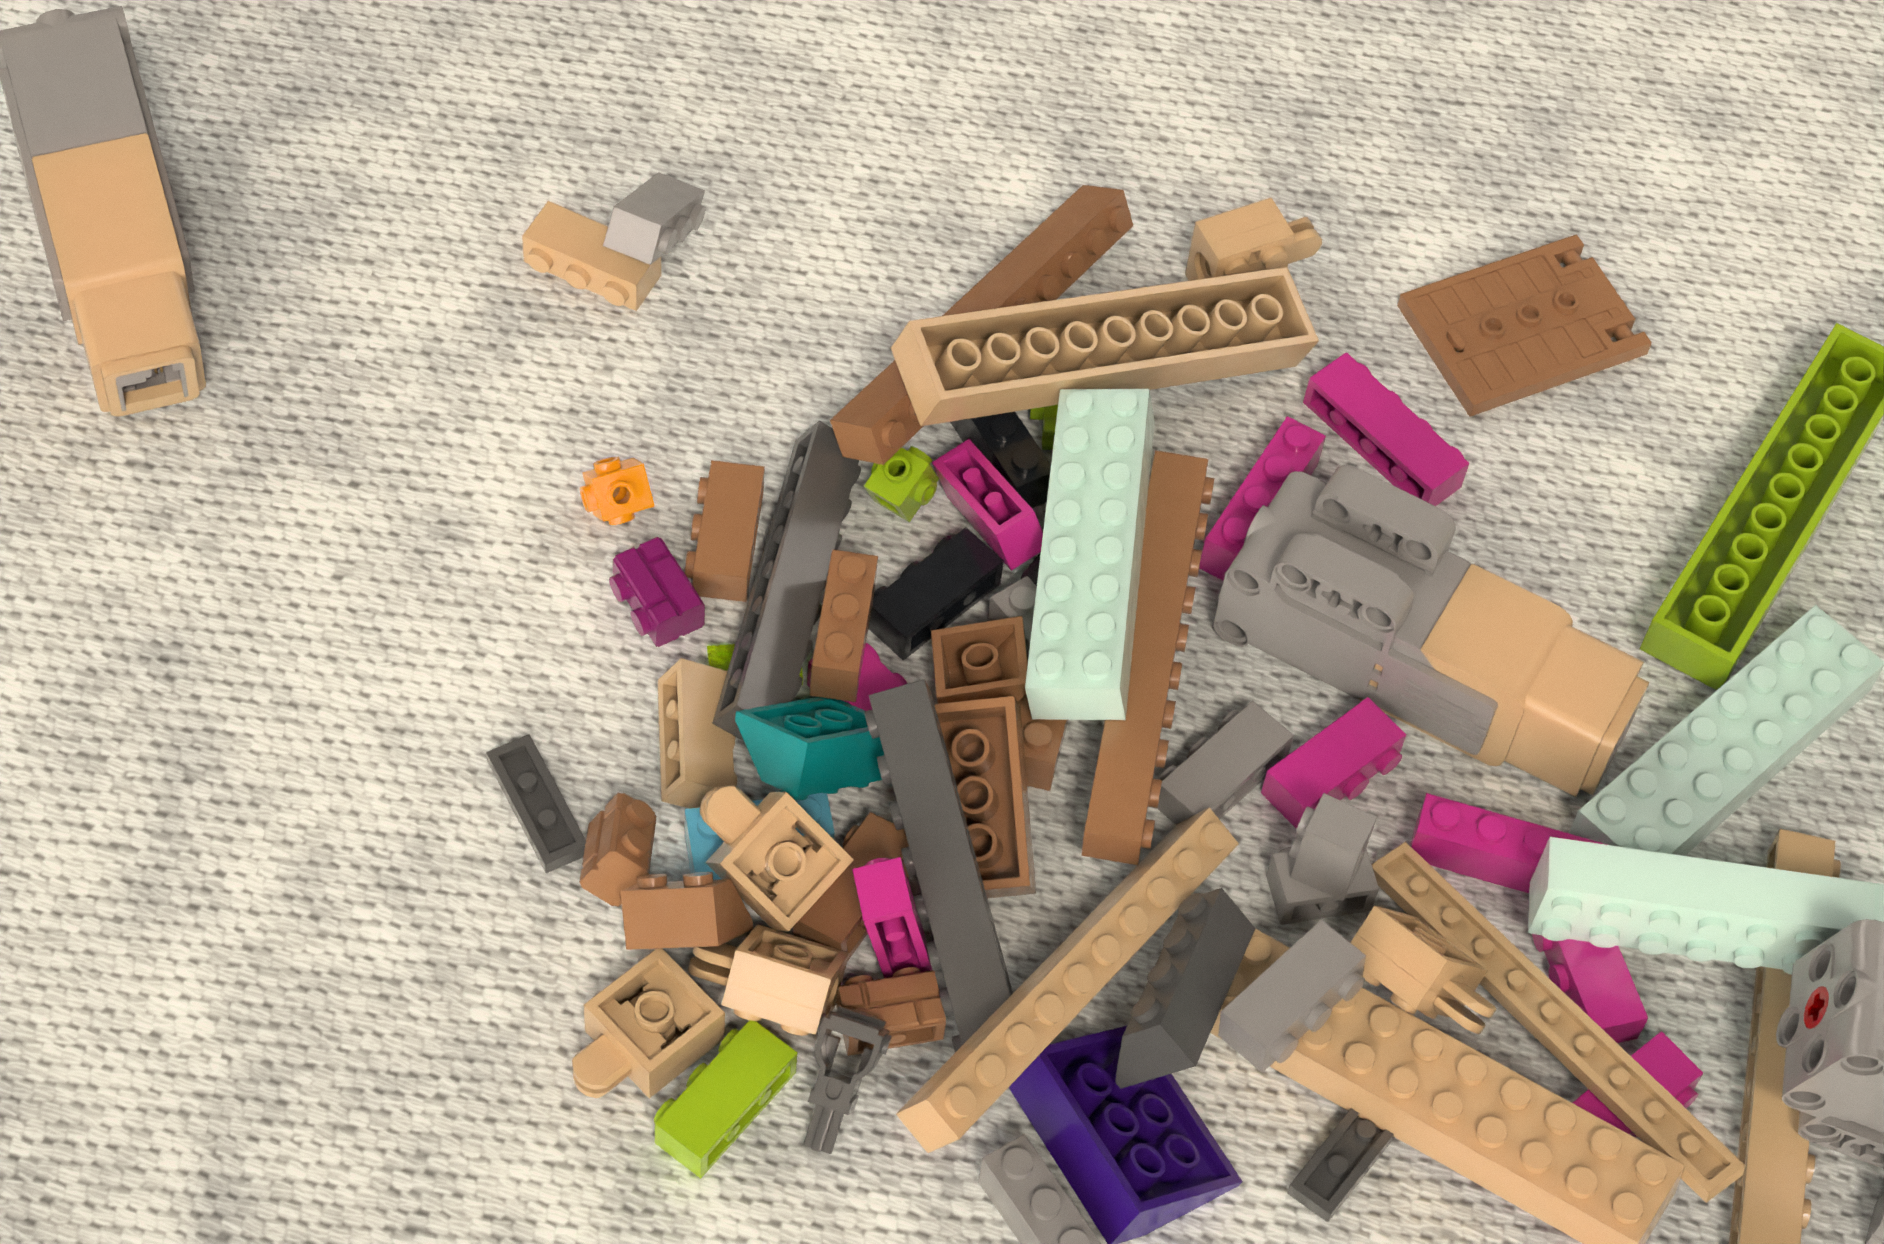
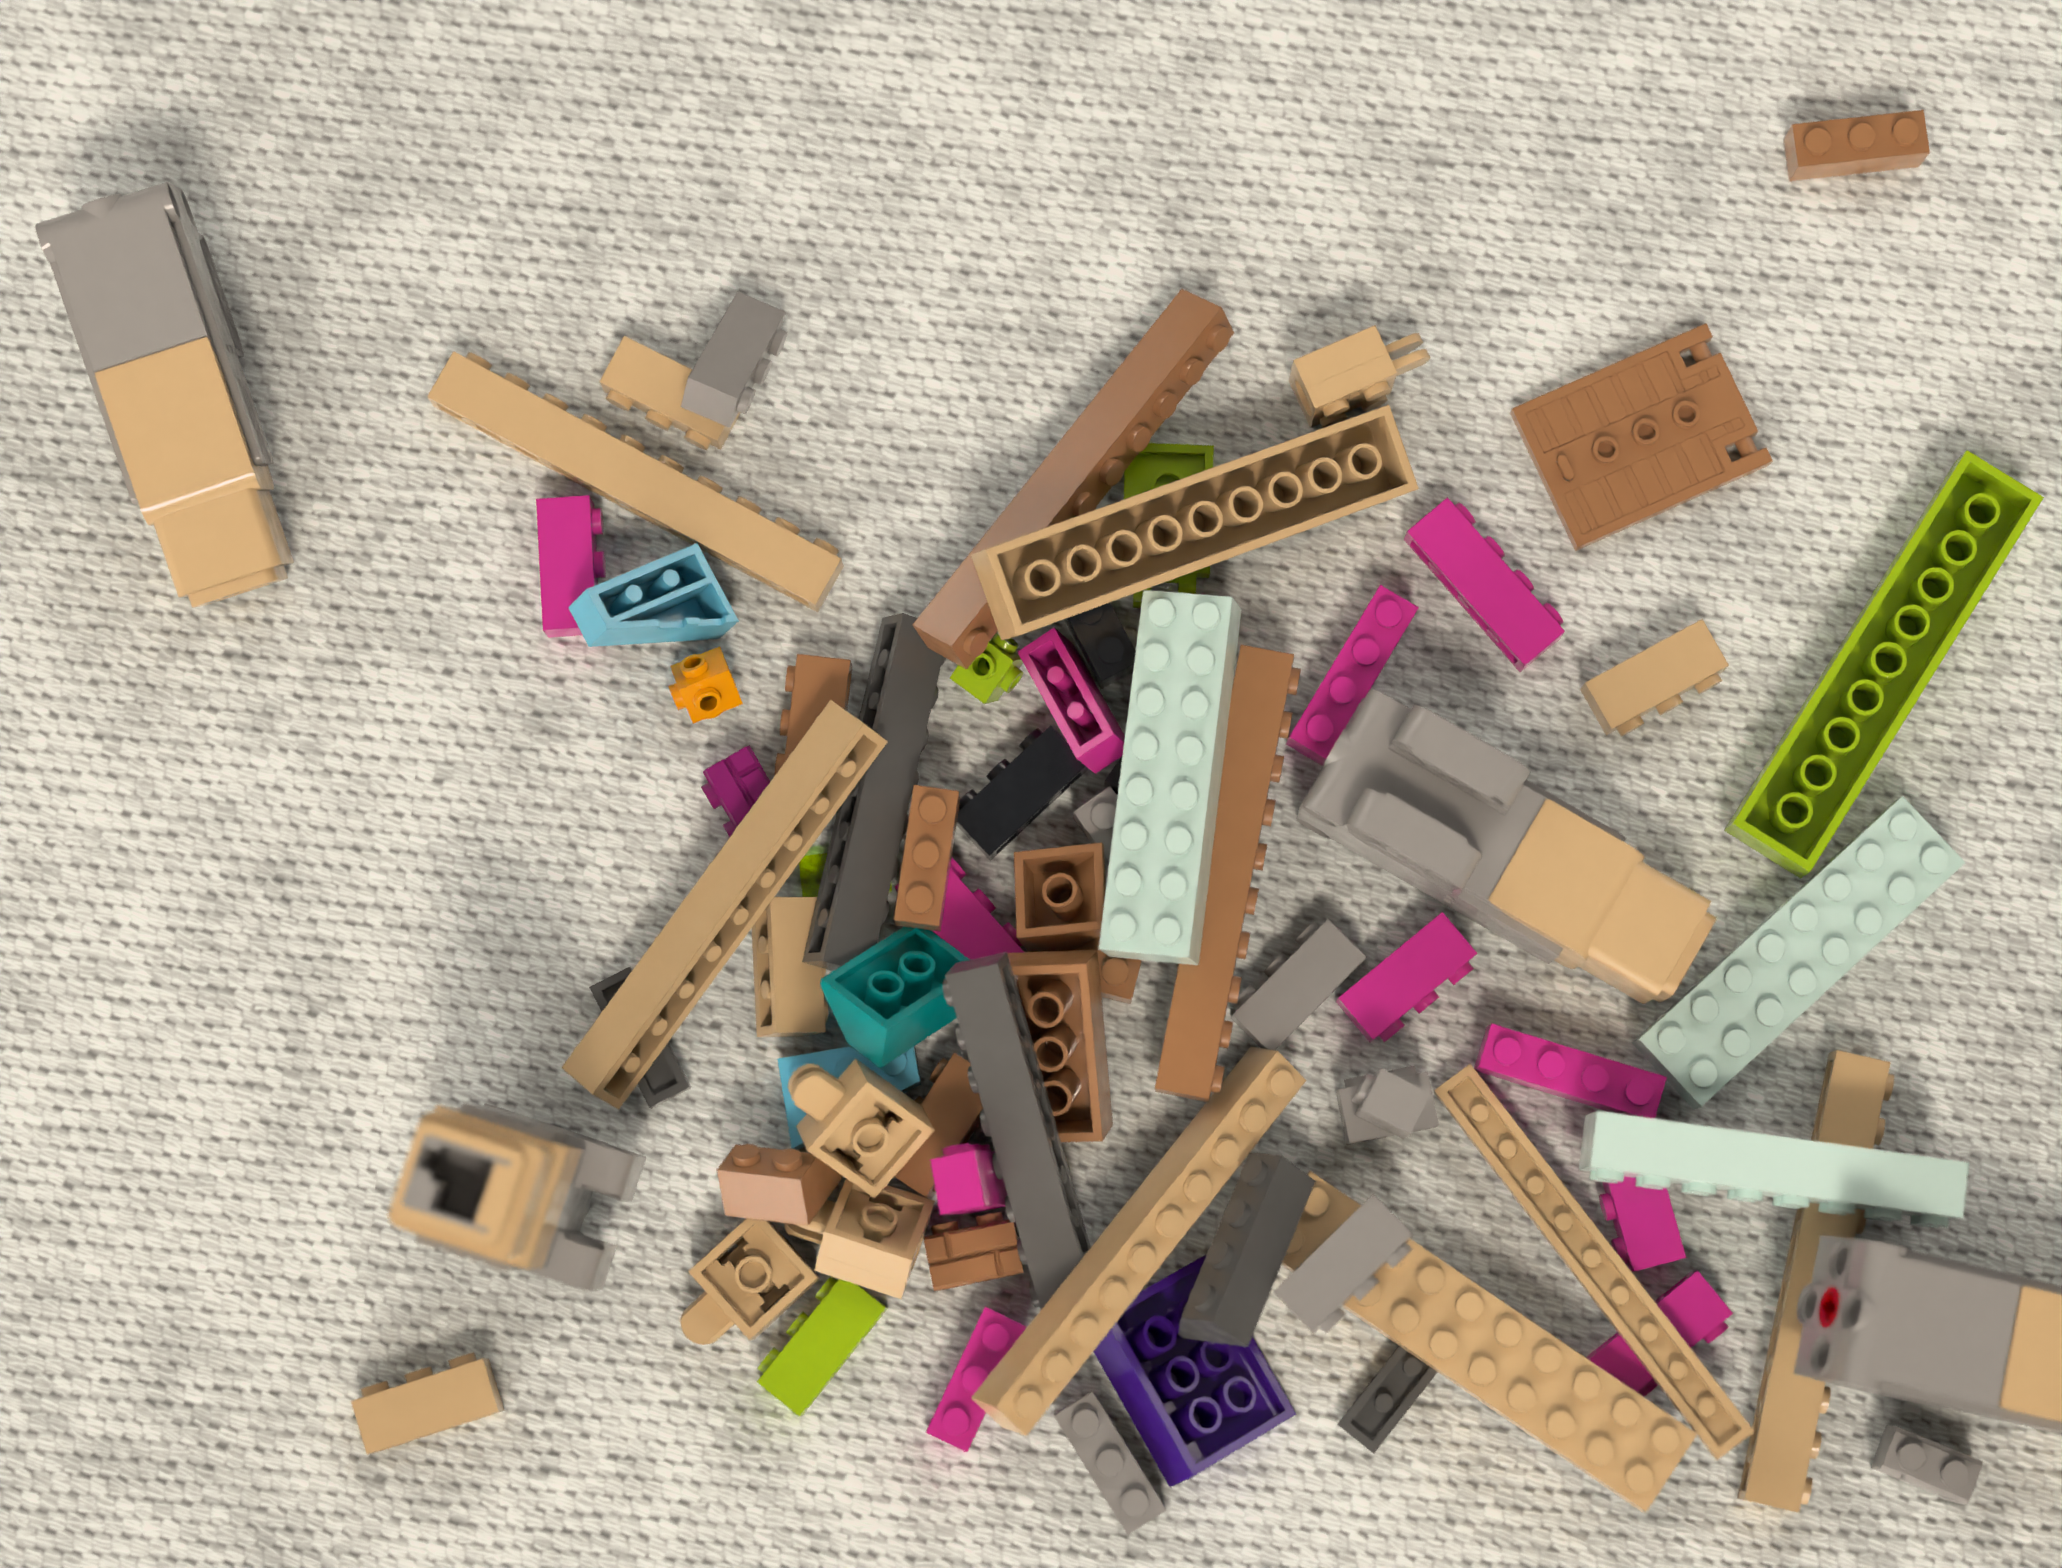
camera: 10 degrees right, 25 degrees up
(285, 1151) = (426, 1403): none -> tan brick
(399, 859) = (511, 1192): none -> piece
(485, 391) = (567, 558): none -> dark pink brick
(555, 325) = (635, 480): none -> tan brick
(570, 410) = (656, 604): none -> medium azure wedge
(618, 848) = (716, 1100): medium nougat brick -> none
(629, 666) = (724, 905): none -> tan brick
(834, 1092) = (922, 1342): dark grey piece -> none
(886, 1144) = (958, 1415): none -> dark pink brick
(1421, 968) = (1472, 1219): tan brick -> none
(1558, 513) = (1655, 679): none -> tan brick
(1698, 105) = (1856, 145): none -> medium nougat brick

